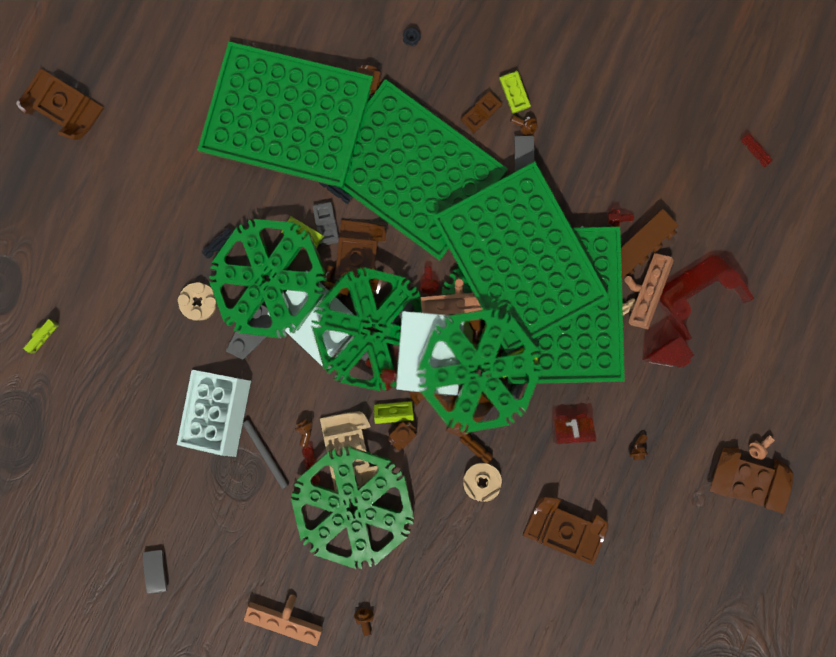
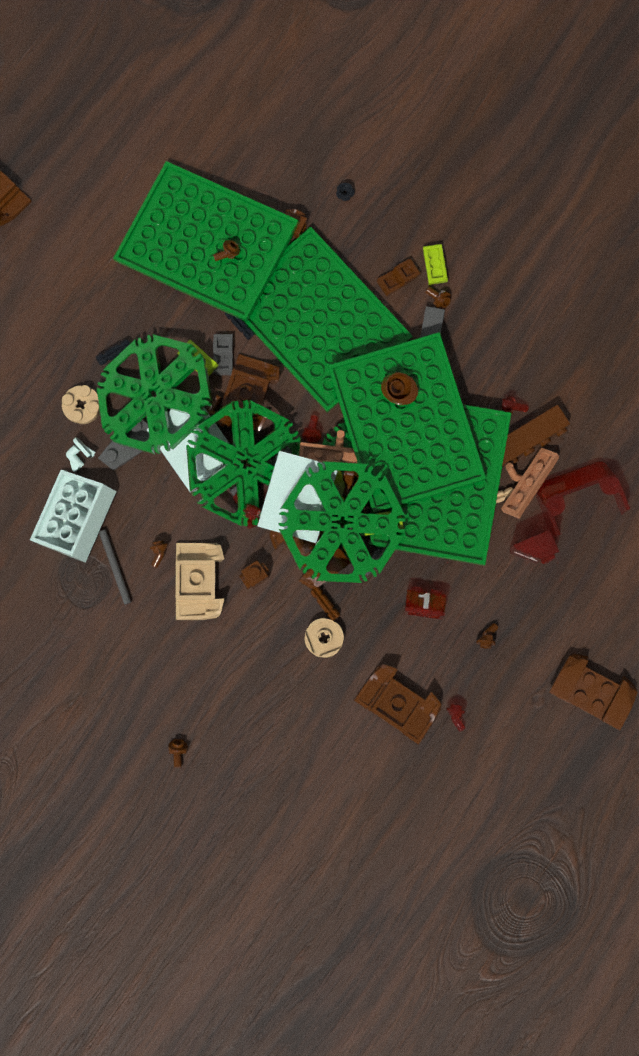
camera: 15 degrees right, 5 degrees down
(204, 359) = (75, 461): none -> light aqua piece
(283, 622) = (96, 736): nougat plate -> none
(309, 461) = (157, 587): clear red axle -> none
(312, 119) = (231, 250): none -> reddish brown plate
(366, 496) = (205, 644): green plate -> none
(393, 412) = (250, 551): lime plate -> none
(508, 226) = (399, 388): none -> reddish brown hat
(623, 528) = (456, 713): none -> clear red plate
(760, 448) = (607, 663): nougat plate -> none

